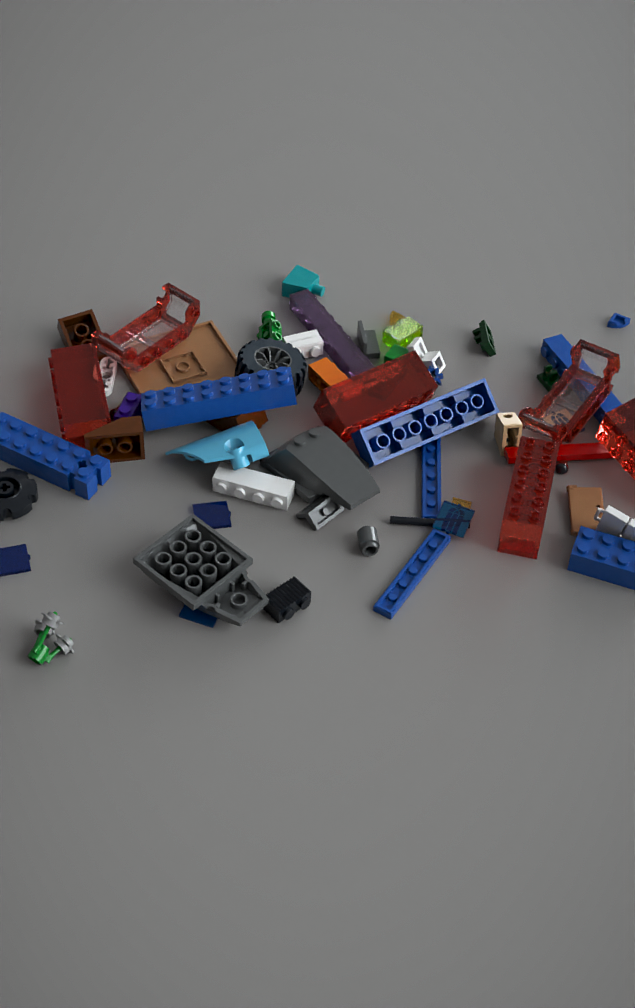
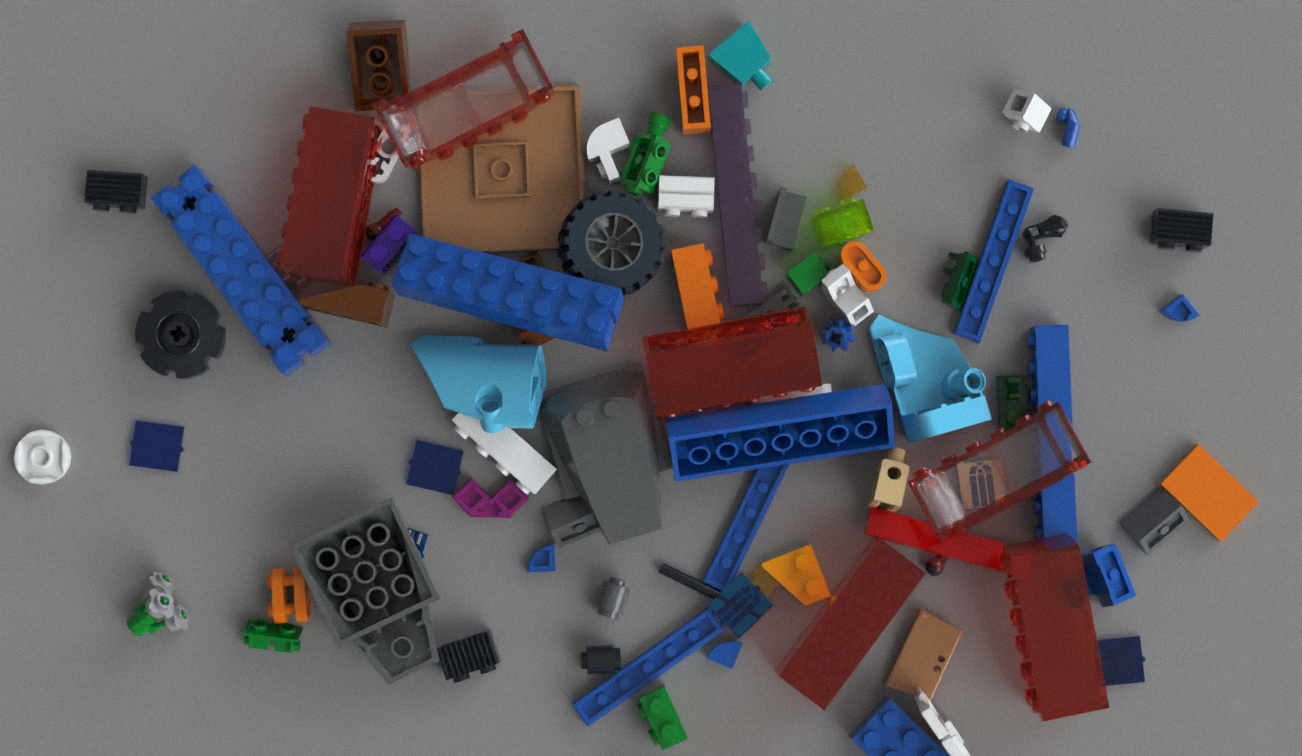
camera: 25 degrees right, 40 degrees up
(137, 613) = (280, 607): none -> orange brick
(148, 631) = (260, 633): none -> green hinge
(241, 334) = (604, 142): none -> white brick
(249, 524) = (480, 504): none -> magenta tile
(281, 300) = (693, 90): none -> orange brick
(310, 539) = (543, 559): none -> blue tile
(379, 574) = (601, 659): none -> black brick
(432, 340) = (864, 267): none -> orange brick
(439, 589) = (663, 717): none -> green brick
(459, 549) = (725, 653): none -> blue tile
(475, 262) = (1026, 111): none -> white brick
(482, 496) = (799, 574): none -> light orange wing
(500, 330) = (993, 261): none -> blue tile
(502, 265) = (1072, 126): none -> blue arm
(510, 387) = (928, 380): none -> medium azure panel
(520, 317) = (1052, 227): none -> black piece
(593, 286) = (1181, 229): none -> black brick

